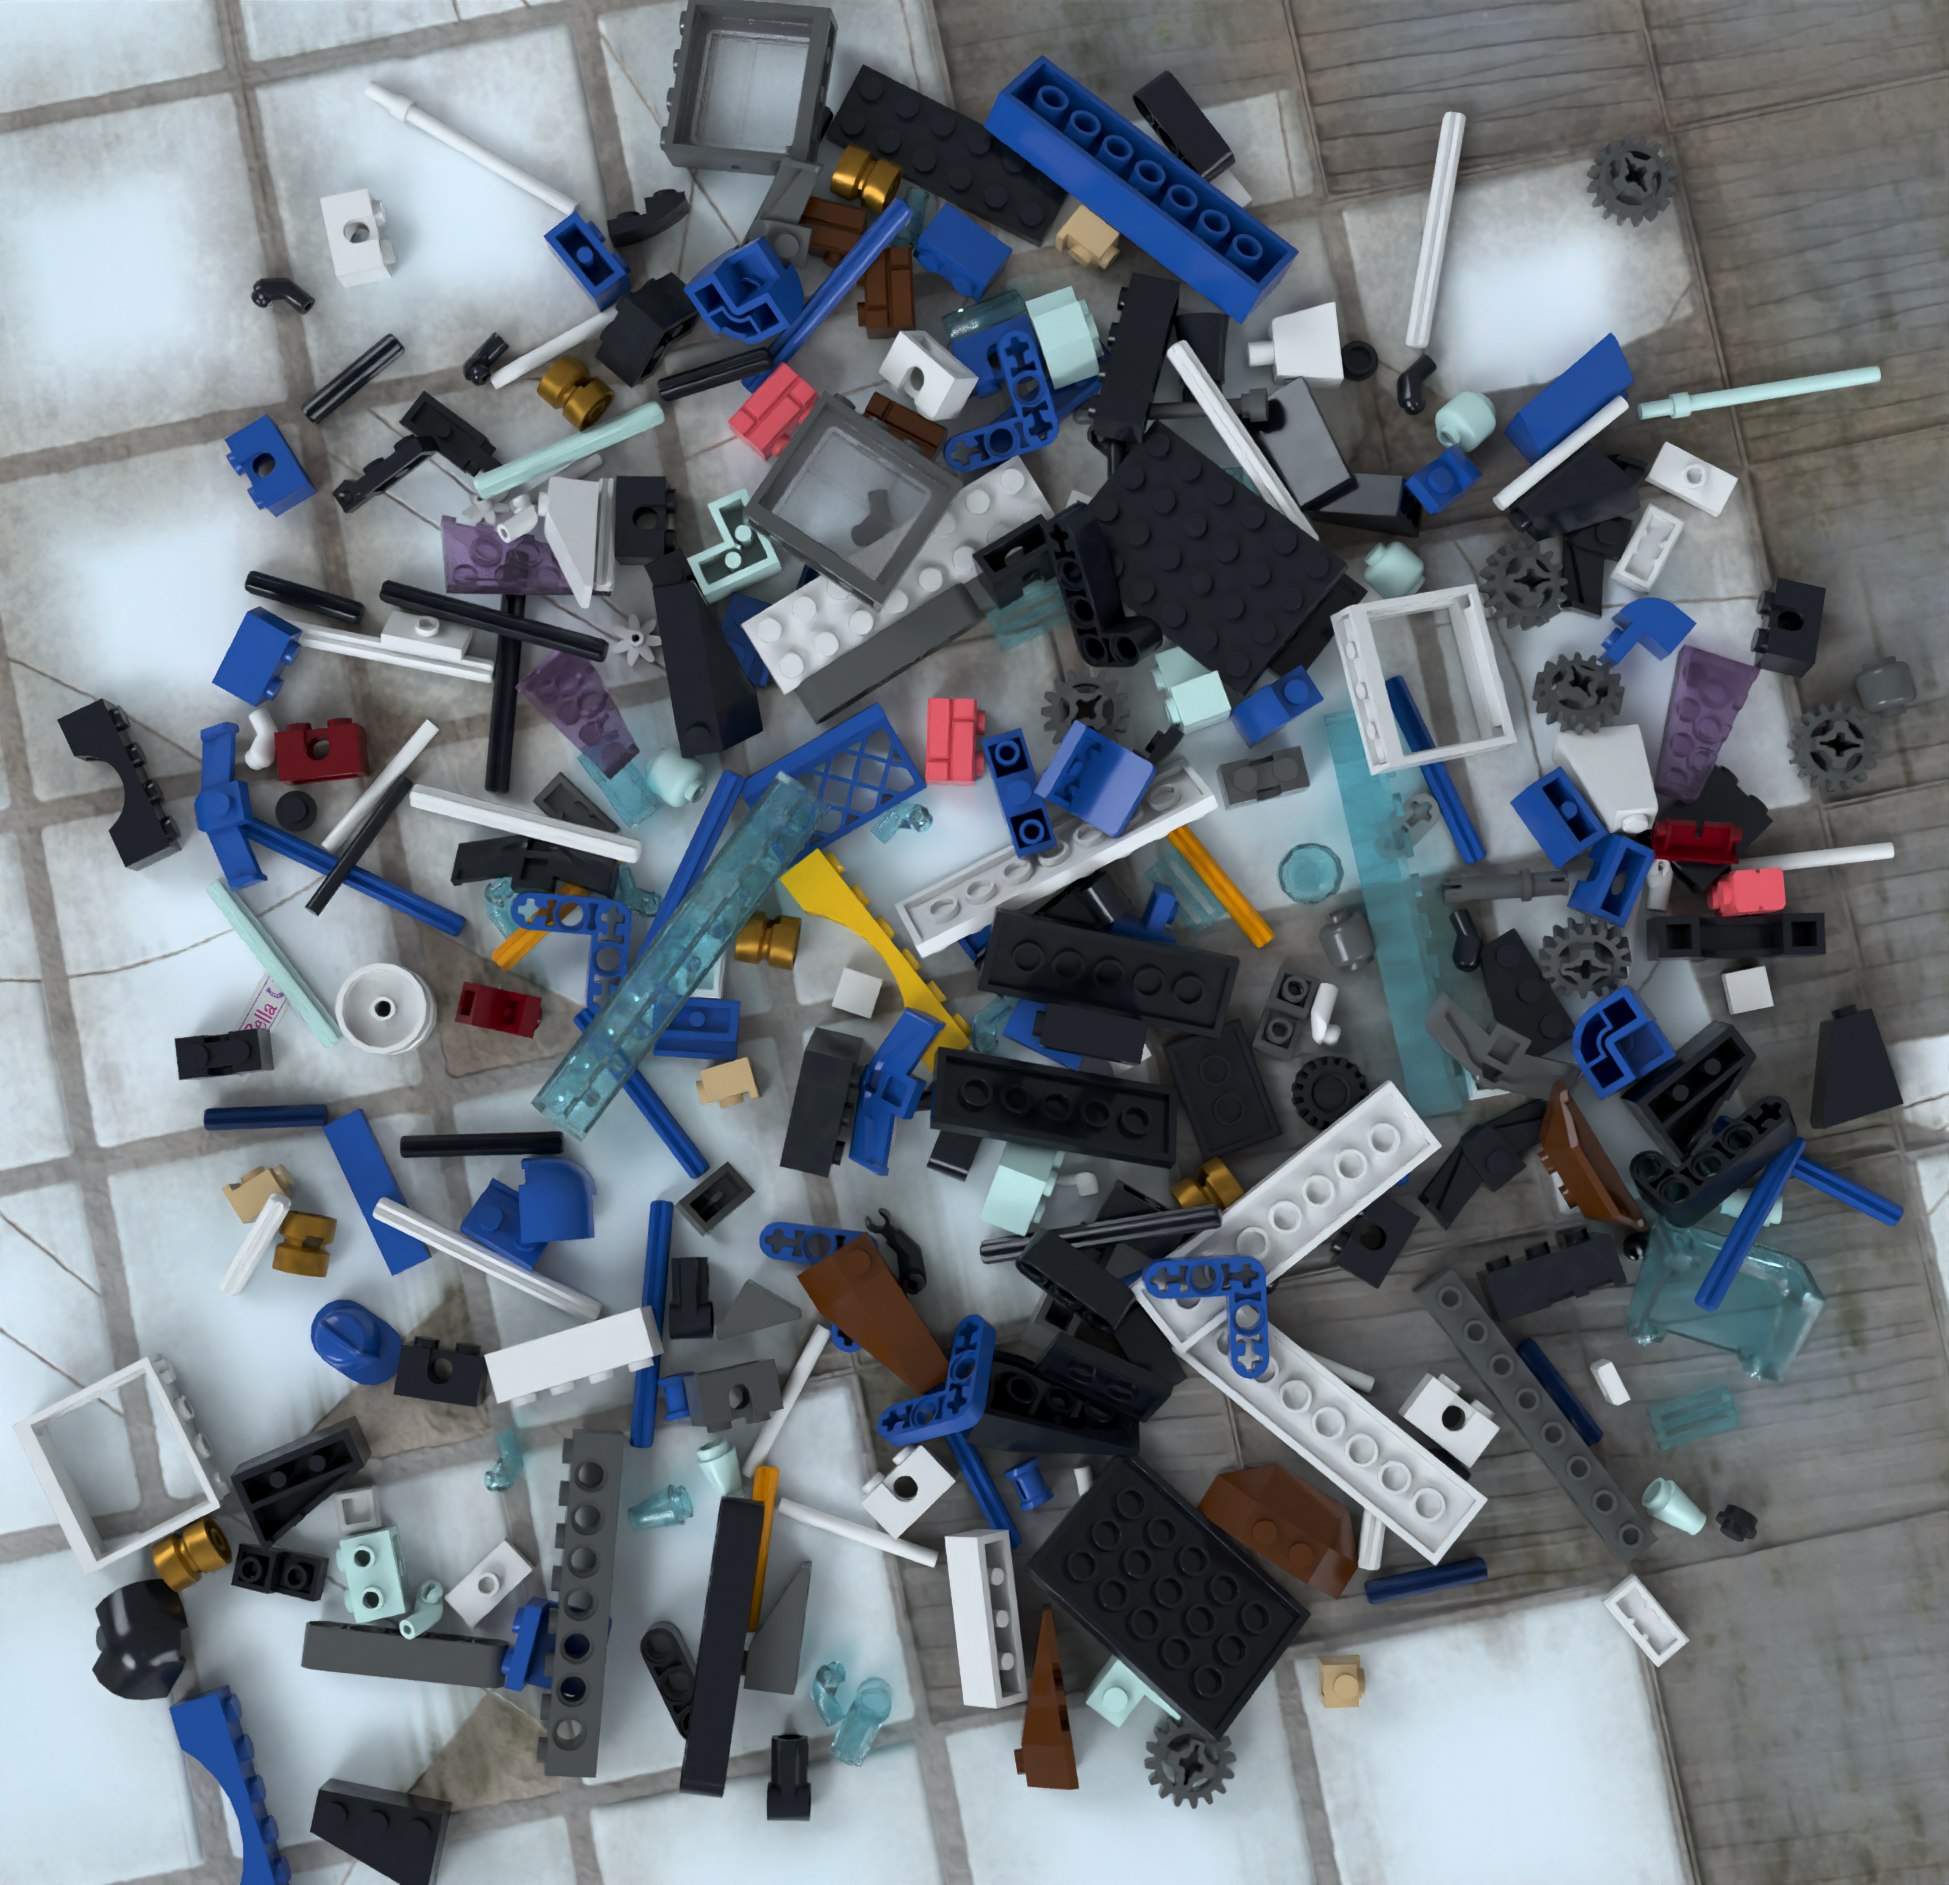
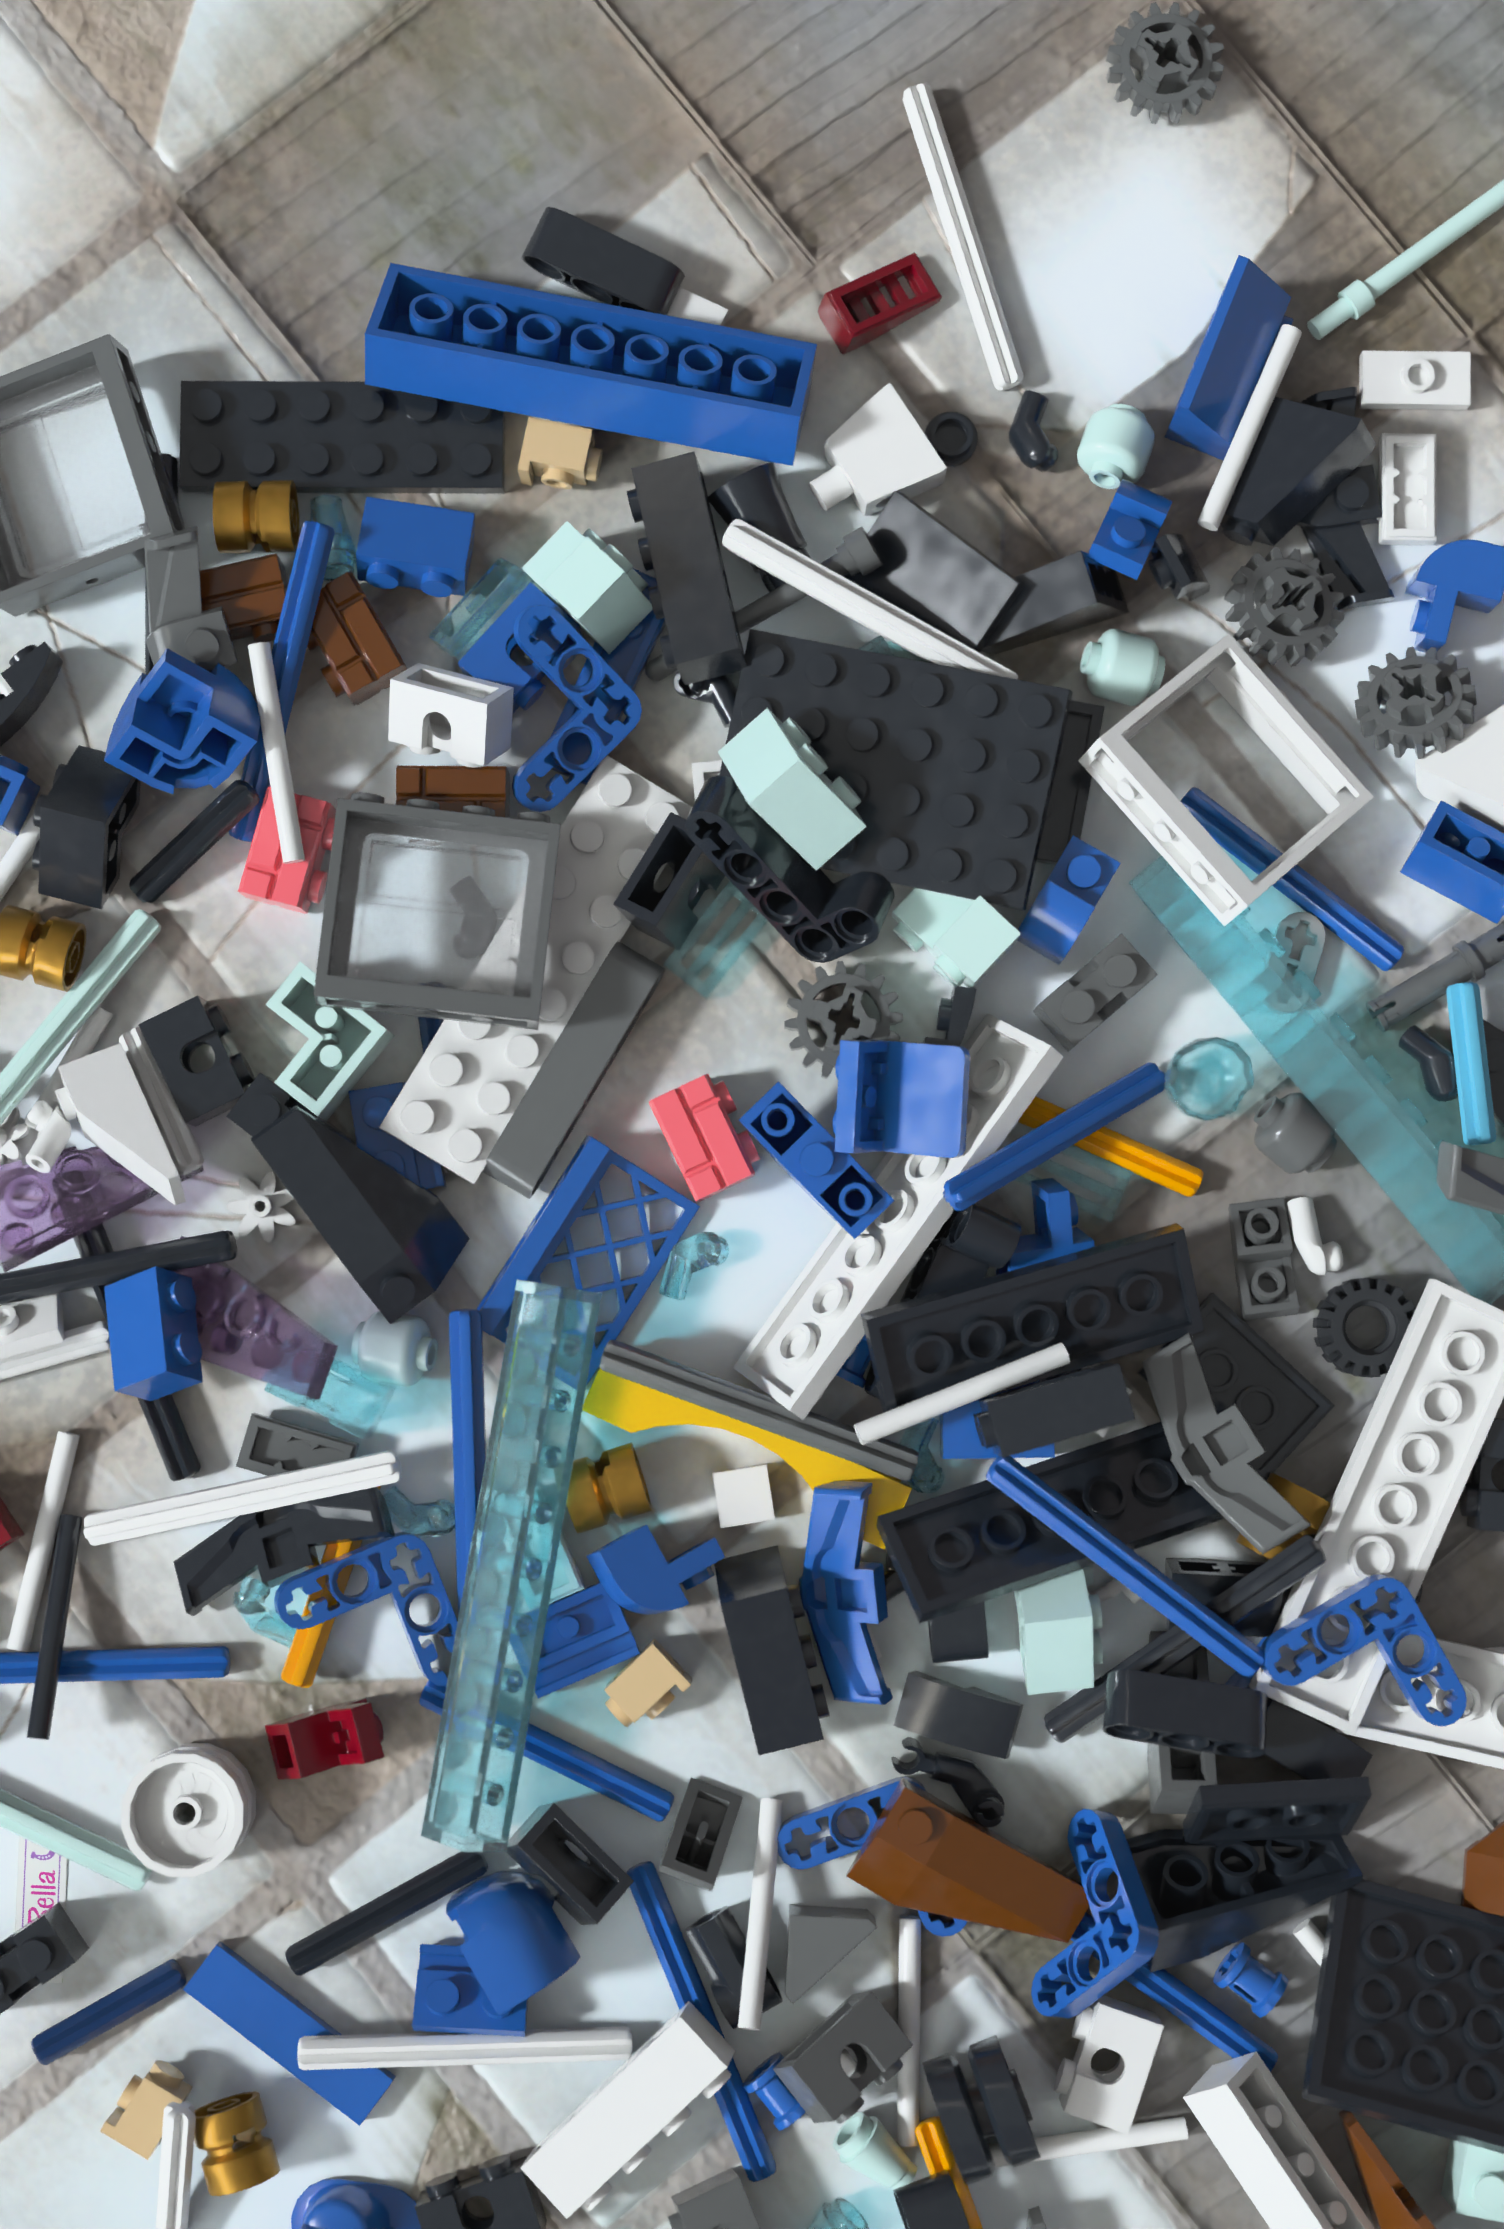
camera: 25 degrees left, 0 degrees up
(522, 684) = (153, 1334): none -> blue brick
(618, 1193) = (583, 1887): none -> black brick
(726, 1272) = (760, 1914): none -> white bar
(761, 1009) = (642, 1579): none -> blue brick
(799, 341) = (276, 752): none -> white bar
(807, 1473) = (982, 2110): none -> black wheel
(896, 938) = (756, 1409): none -> dark grey axle
(925, 1209) = (958, 1715): none -> black slope
(1035, 994) = (961, 1393): none -> white bar
(1085, 1161) = (1125, 1565): none -> blue axle
(1125, 534) = (789, 790): none -> light aqua brick
(1185, 857) = (1053, 1136): none -> blue axle
(1186, 1118) = (1216, 1449): none -> dark grey plate
(1334, 233) = (849, 320): none -> dark red slope
(1464, 521) = (1177, 567): none -> black slope
(1490, 952) = (1471, 1063): none -> medium azure axle

